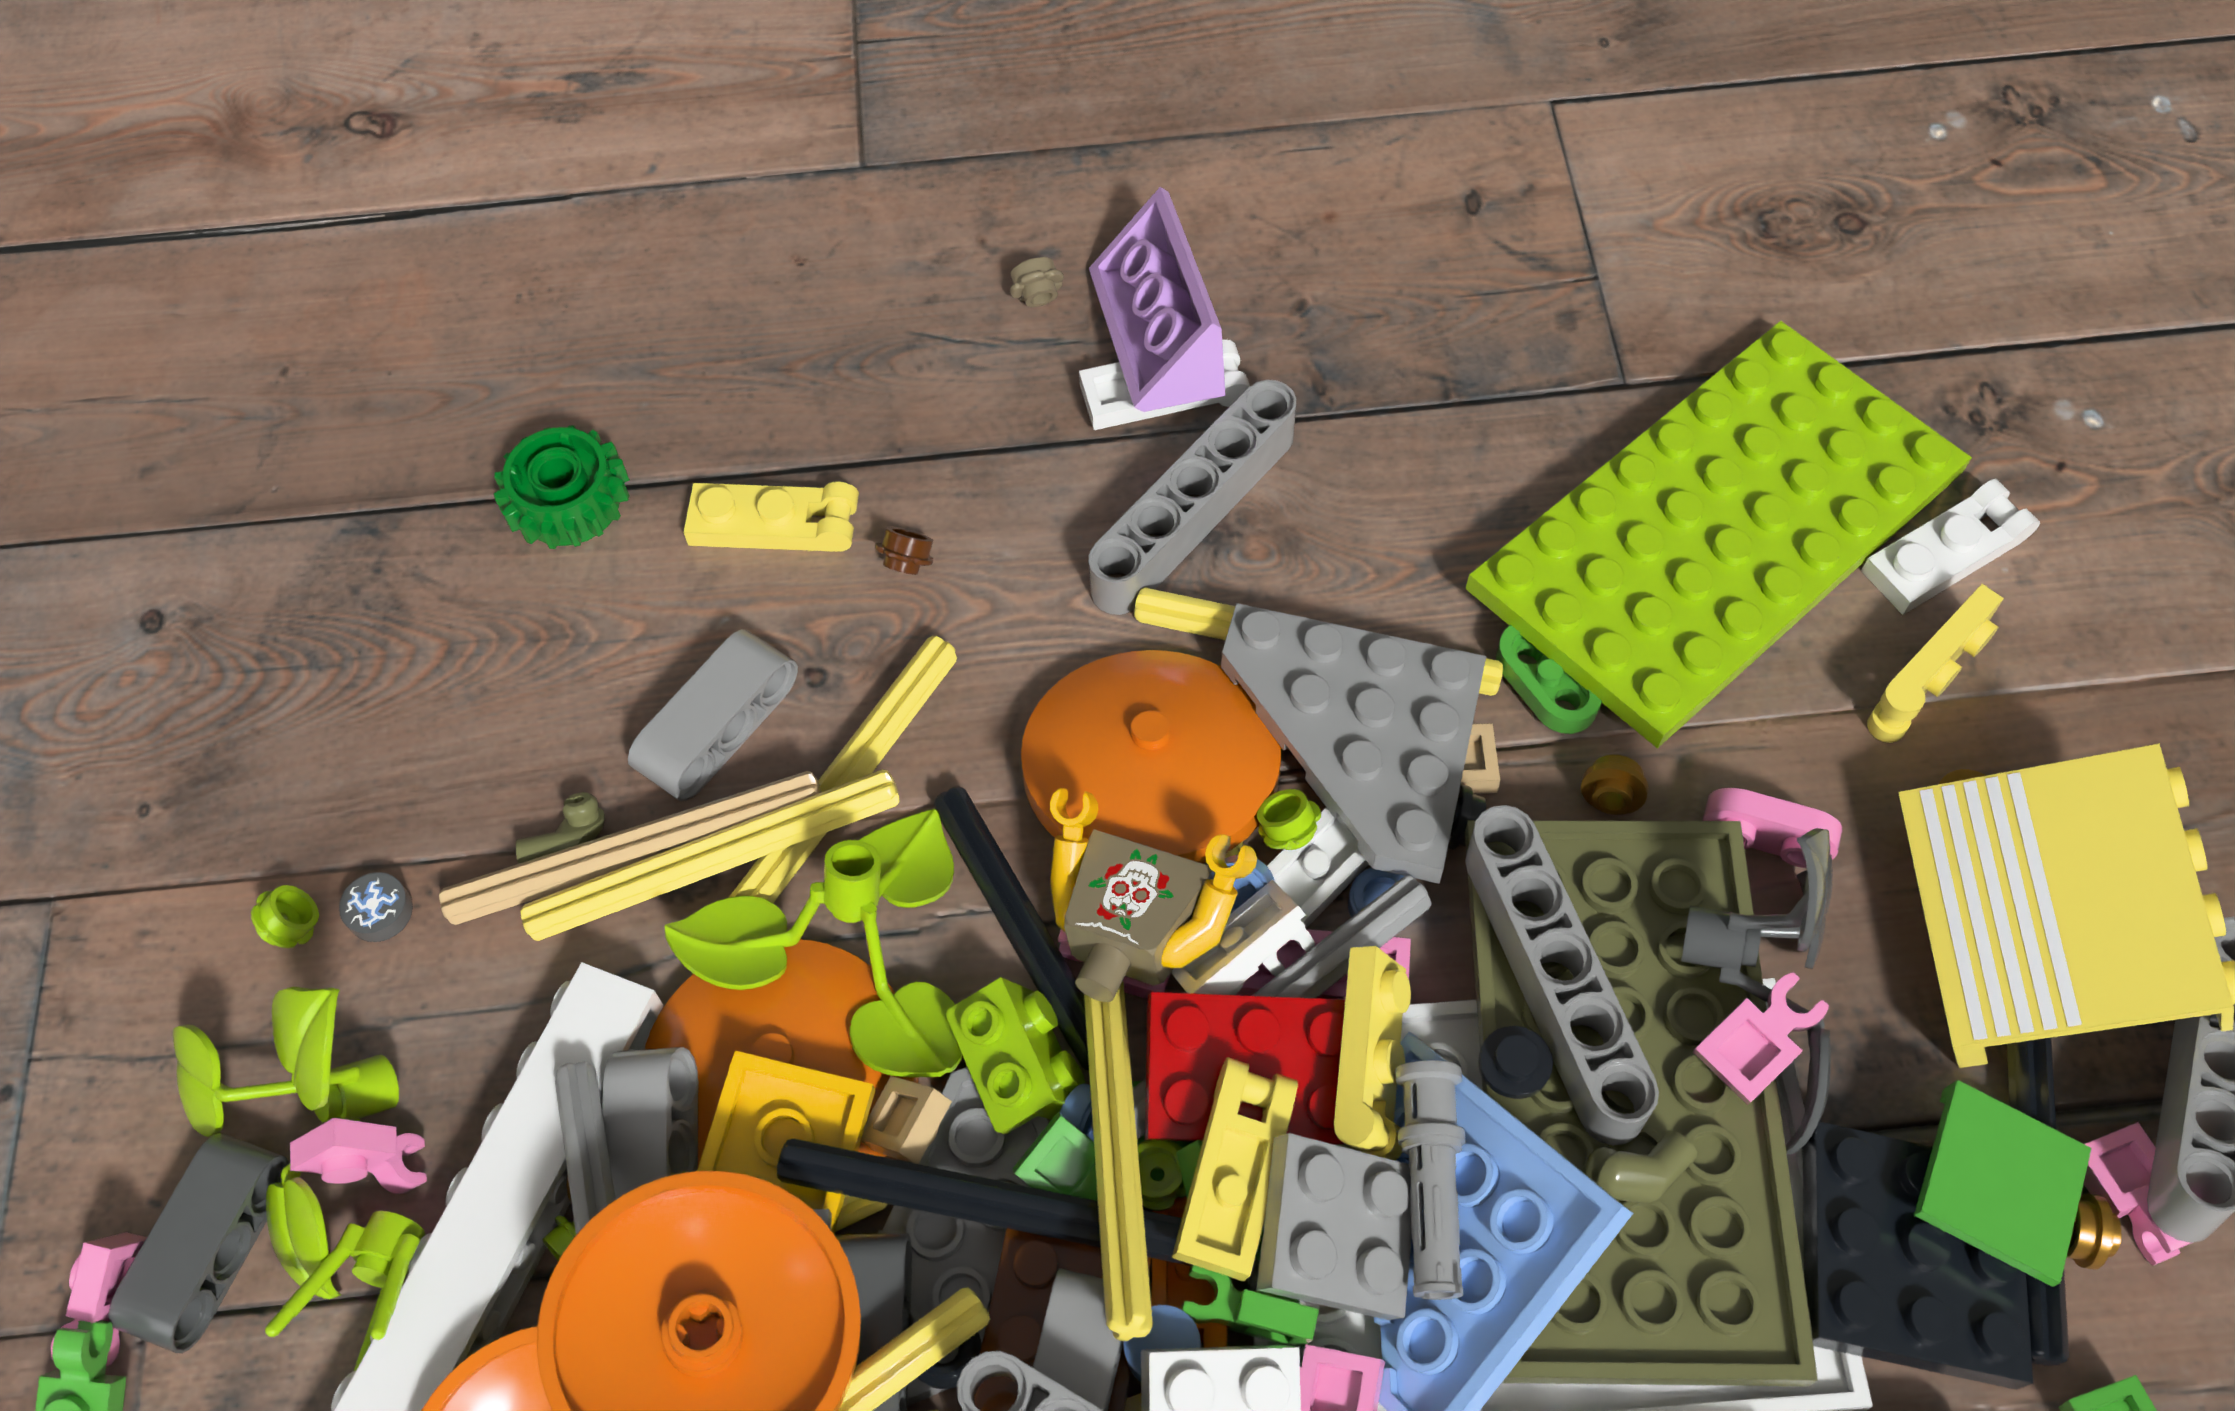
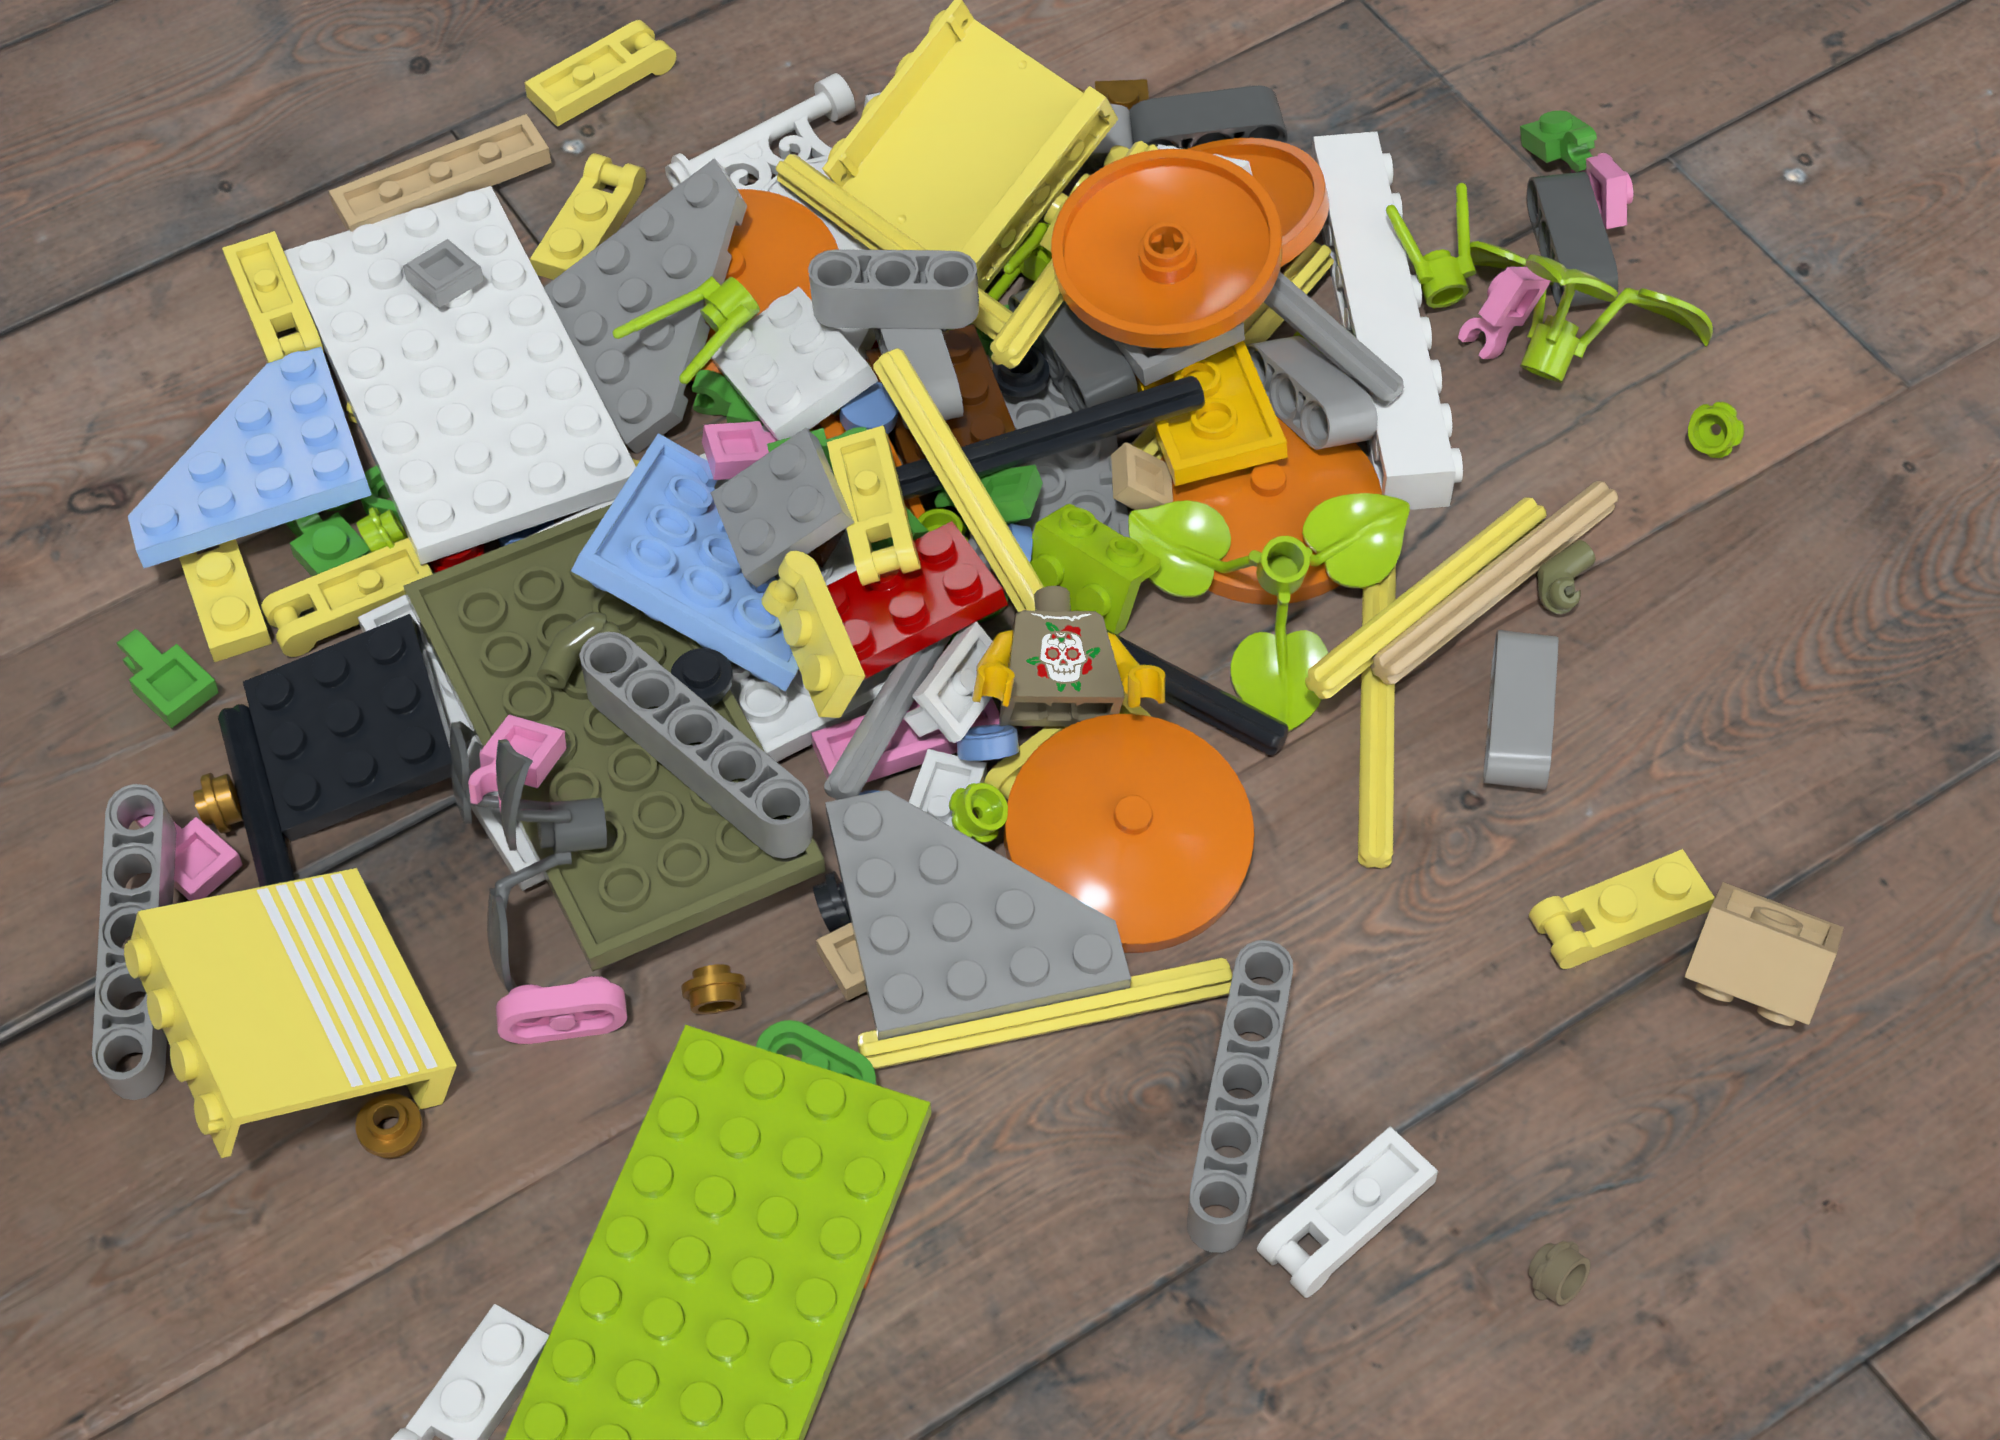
camera: 150 degrees right, 5 degrees down
(375, 907) = (1659, 473): dark grey tile -> none
(561, 486) = (1819, 864): green gear -> none
(691, 419) = (1764, 955): none -> tan slope
(905, 550) = (1475, 936): reddish brown plate -> none
(1159, 311) = (1394, 1259): lavender slope -> none
(1432, 1145) = (738, 580): light grey pin -> none
(1934, 665) = (452, 1240): light yellow plate -> none
(2003, 1182) = (294, 782): bright green piece -> none

